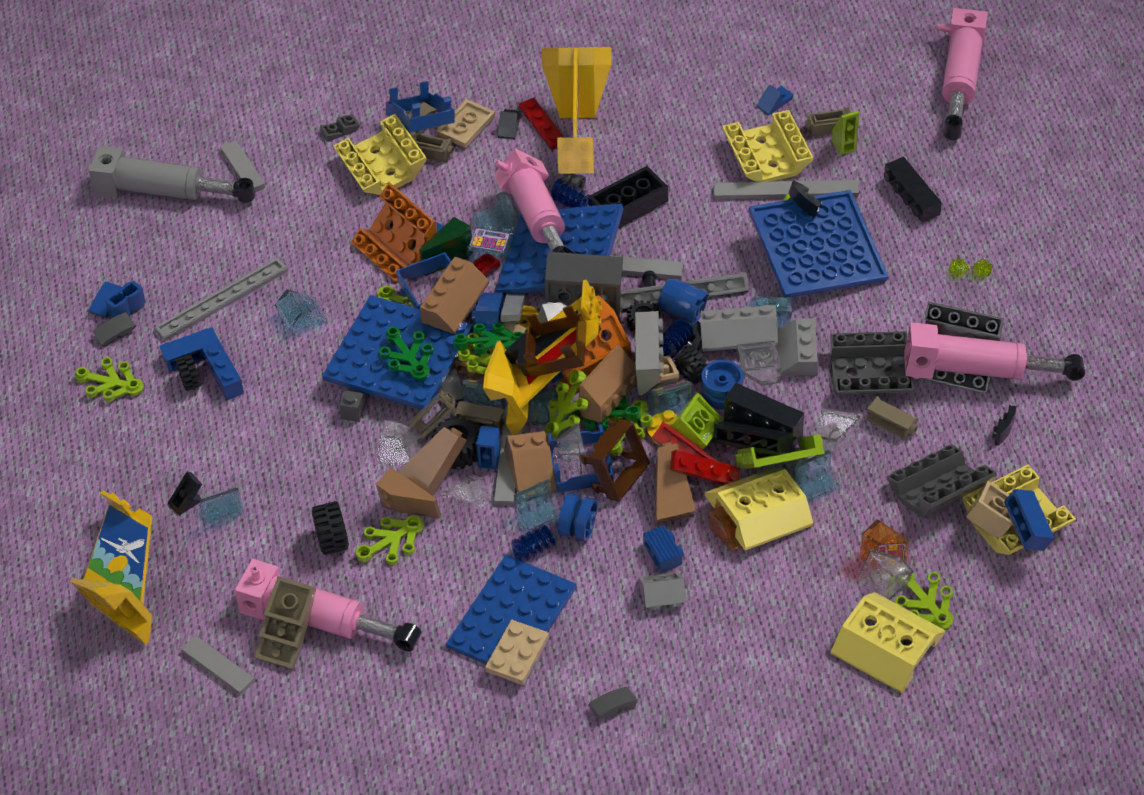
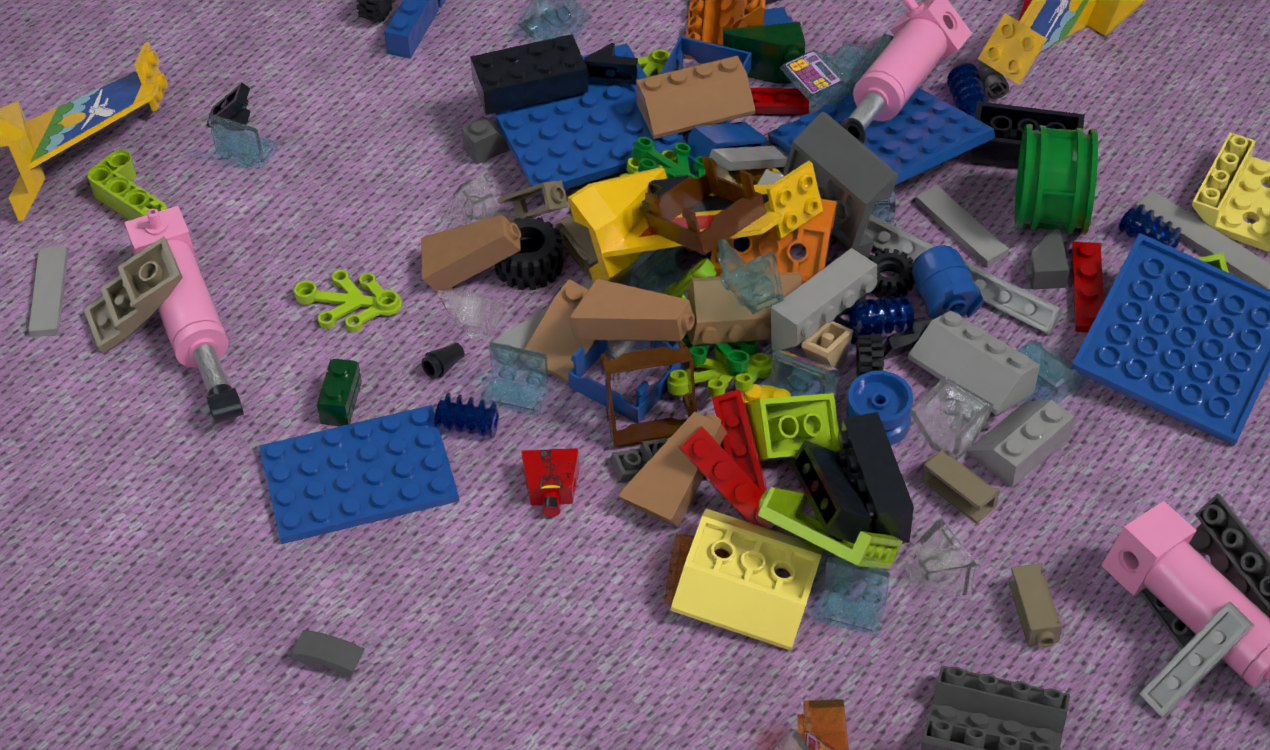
camera: 45 degrees right, 0 degrees up
(193, 584) = (114, 186): none -> lime beam
(330, 528) = (294, 237): black tyre -> none
(350, 347) = (529, 74): none -> black brick
(386, 314) = (608, 68): none -> black slope
(405, 496) = (402, 255): medium nougat slope -> none
(418, 370) = (569, 147): green plant -> none
(454, 585) = (339, 392): none -> dark green brick
(481, 531) = (440, 361): none -> black cone
(488, 447) = (545, 277): blue brick -> none
(517, 652) = (302, 512): tan plate -> none
(568, 426) = (630, 313): none -> medium nougat slope
(577, 517) = (538, 420): blue wheel -> none
(610, 539) = (551, 477): none -> red torso
(613, 361) = (754, 282): none -> clear light blue bracket
(641, 496) = (629, 463): none -> dark grey slope
(649, 278) = (949, 236): black pin -> none
(662, 548) = (591, 533): blue brick -> none
(663, 590) = (532, 577): light grey slope -> none
(678, 208) = (1056, 179): none -> green wheel
(711, 255) = (1048, 263): none -> dark grey slope
(737, 203) = (1137, 222): none -> clear blue piece
(739, 254) = (1086, 283): none -> red plate
(797, 392) = (959, 486): none -> dark tan window
(800, 196) = (1217, 264): black slope -> none
(869, 357) = (1093, 514): dark grey slope -> none
(990, 384) = (1196, 659): none -> light grey tile
(1004, 425) = (1165, 732): black slope -> none

